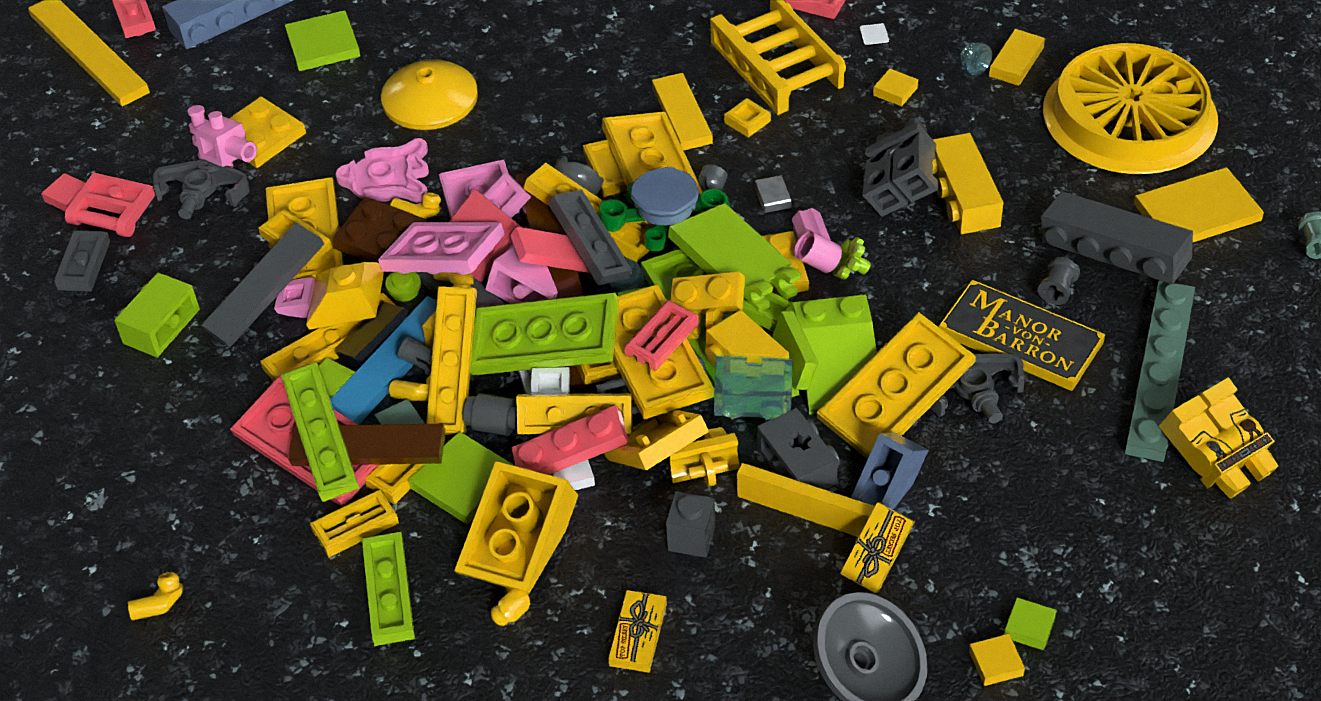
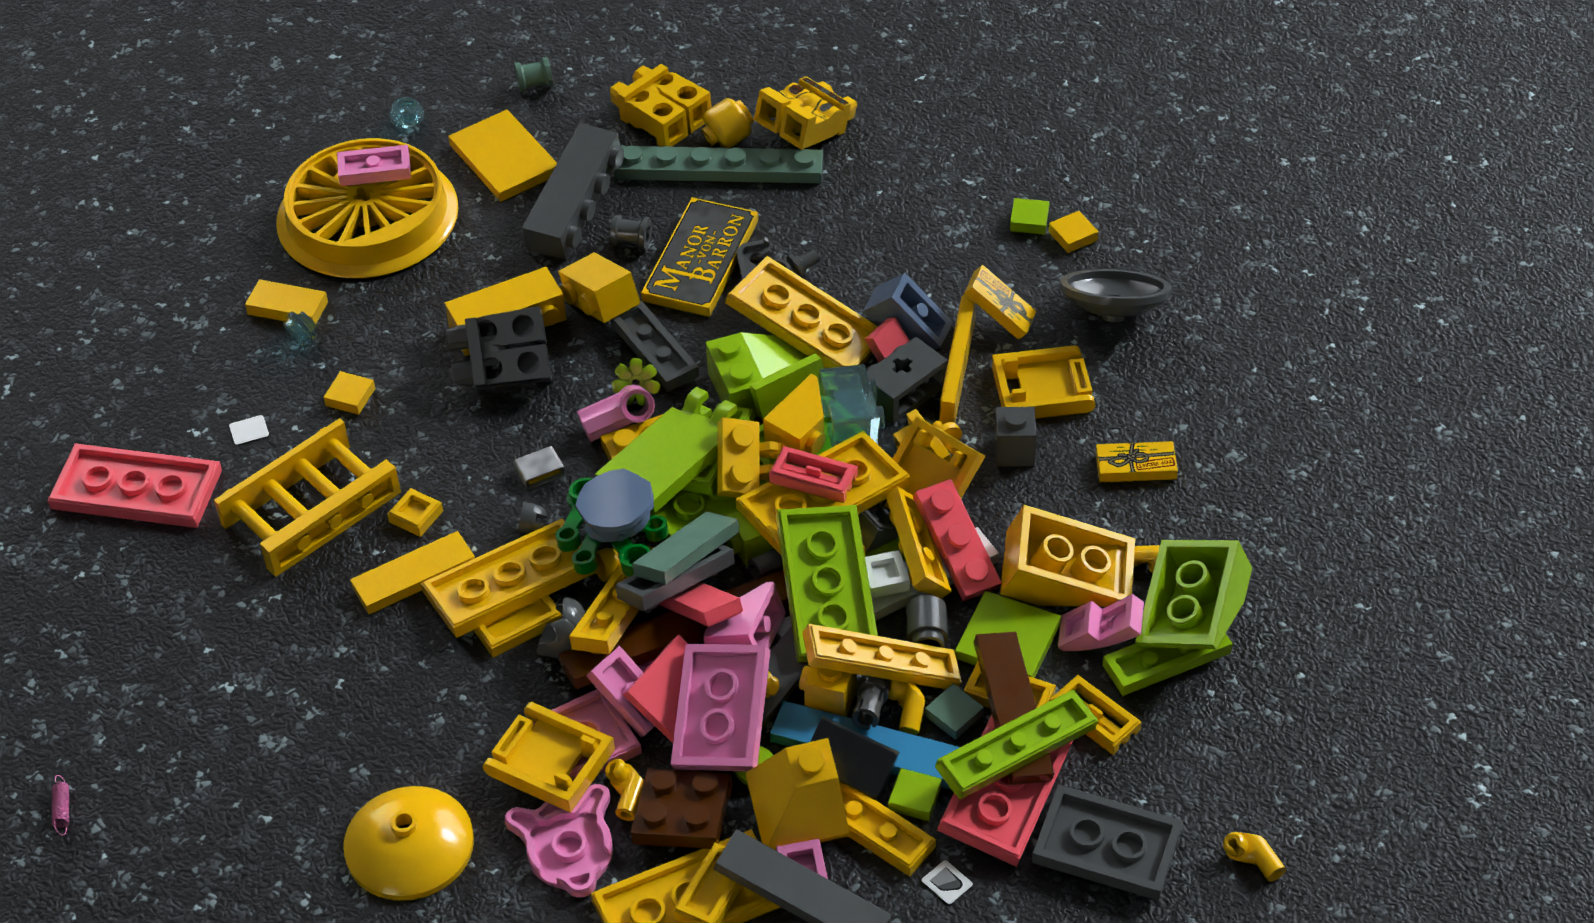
camera: 105 degrees left, 0 degrees up
(217, 494) = (1107, 842): none -> dark grey plate
(244, 390) = (947, 882): none -> white sticker
(424, 607) = (1194, 593): none -> lime slope
(437, 539) = (1095, 627): none -> bright pink slope
(458, 155) = (544, 754): none -> yellow container
(610, 242) = (685, 548): none -> sand green tile
(769, 585) = (1048, 380): none -> yellow container
(852, 451) = (886, 338): none -> coral tile
(900, 278) = (655, 346): none -> dark grey plate
(972, 240) = (598, 287): none -> yellow brick
(1156, 91) = (373, 165): none -> bright pink plate
(1213, 366) = (727, 123): none -> yellow head
(1253, 326) = (661, 104): none -> yellow hips
(1268, 143) = (406, 112): none -> clear light blue plate

